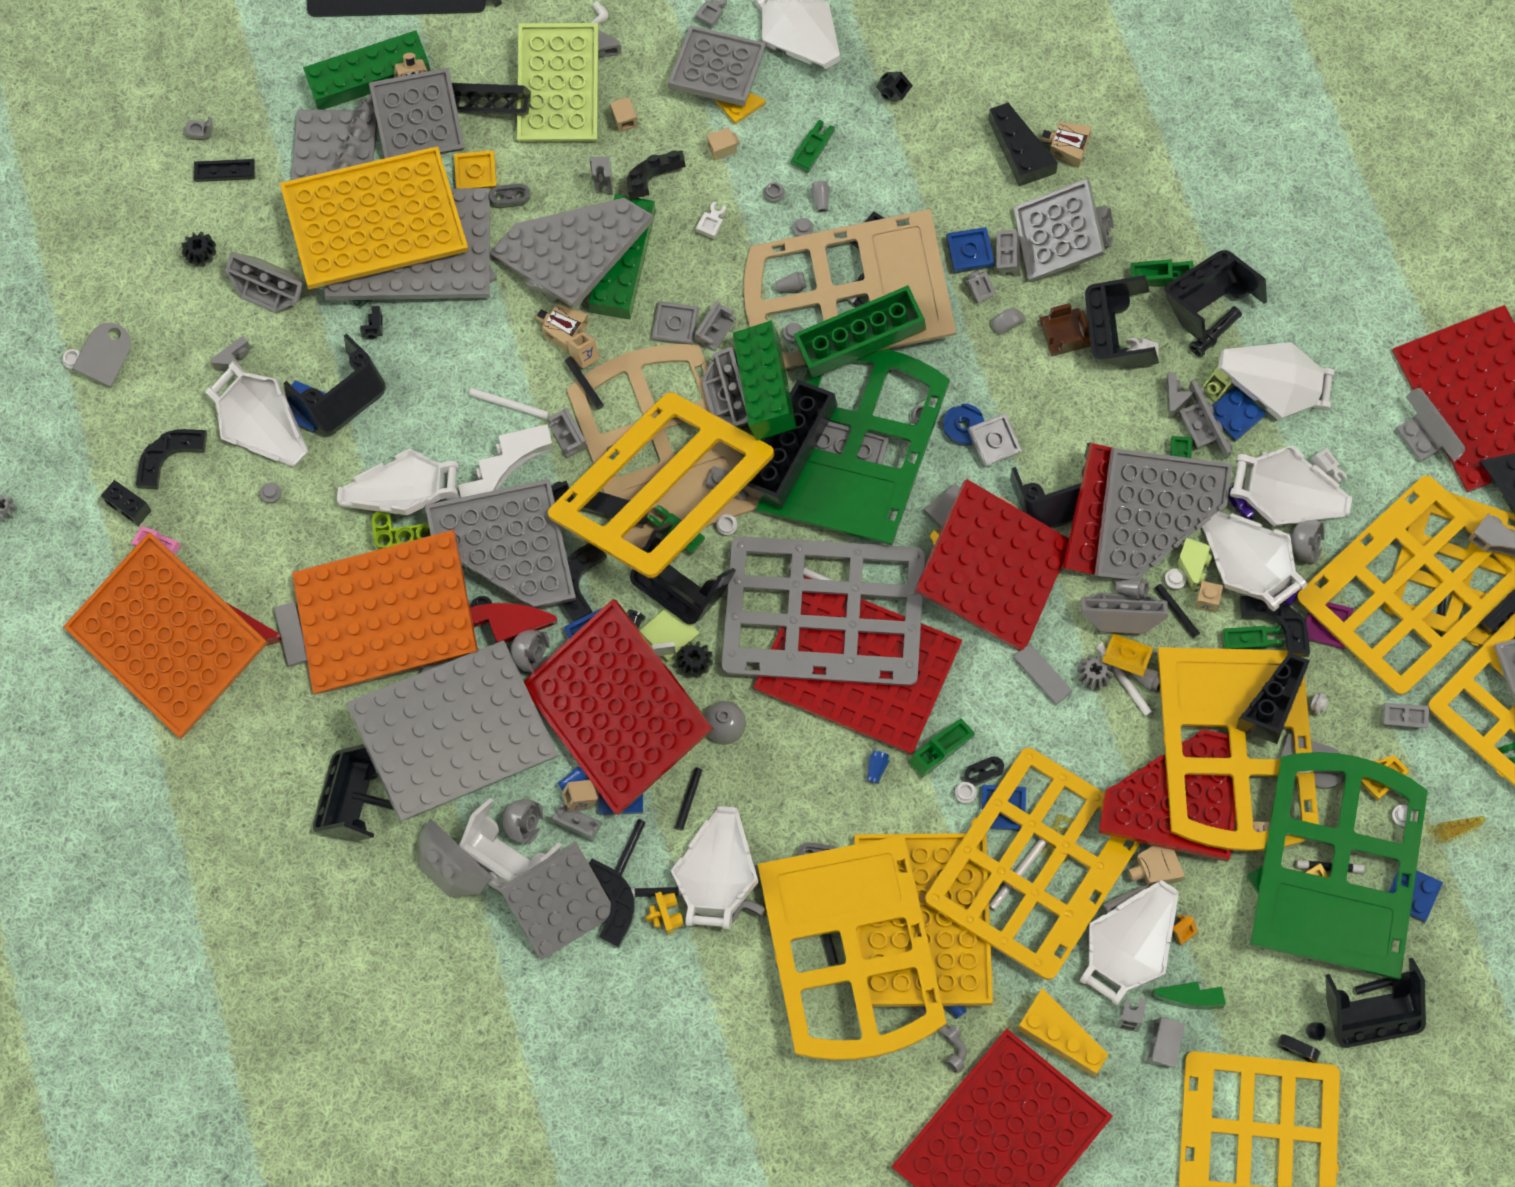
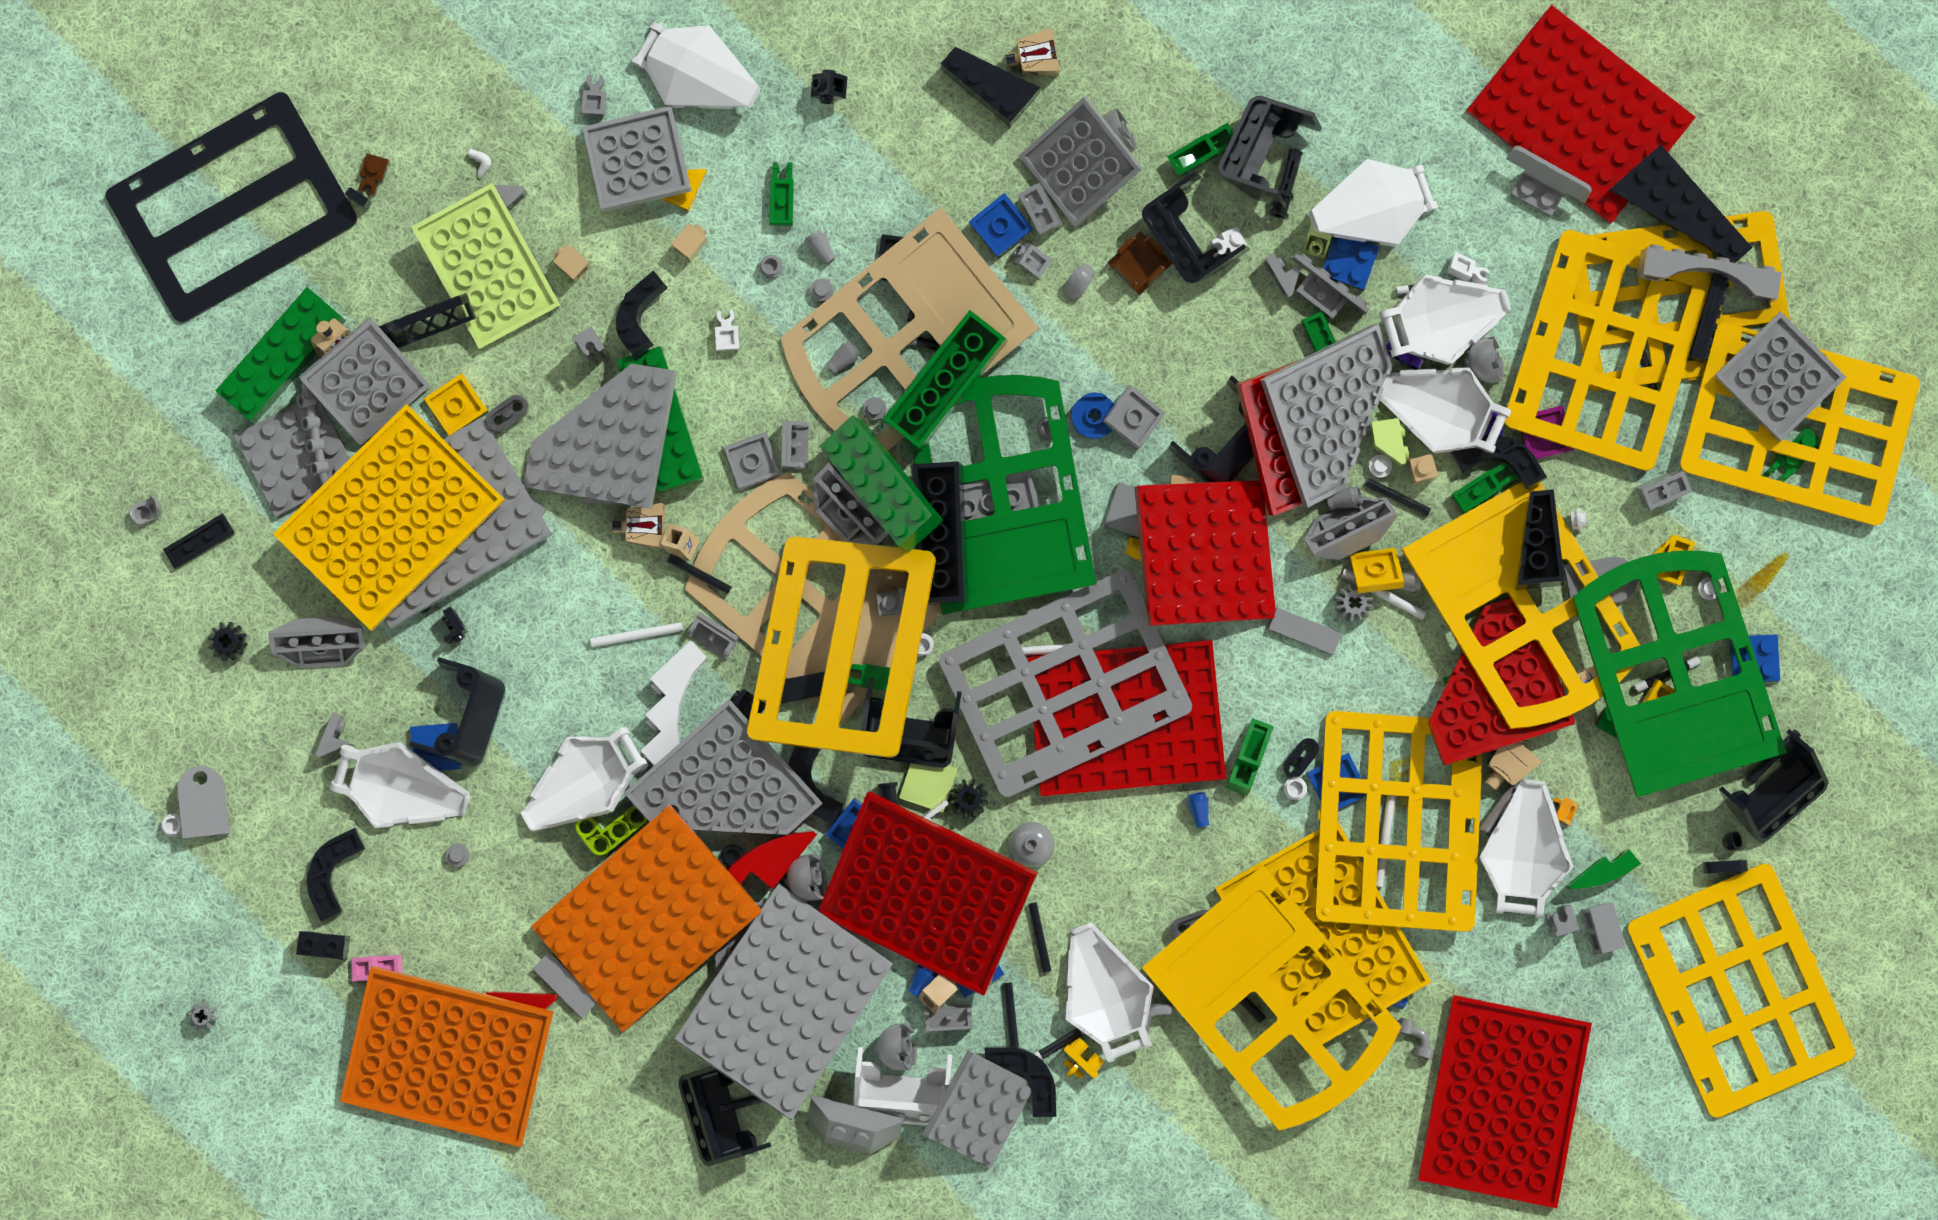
camera: 30 degrees left, 15 degrees up
(1058, 1032) = (1502, 972): yellow wedge -> none

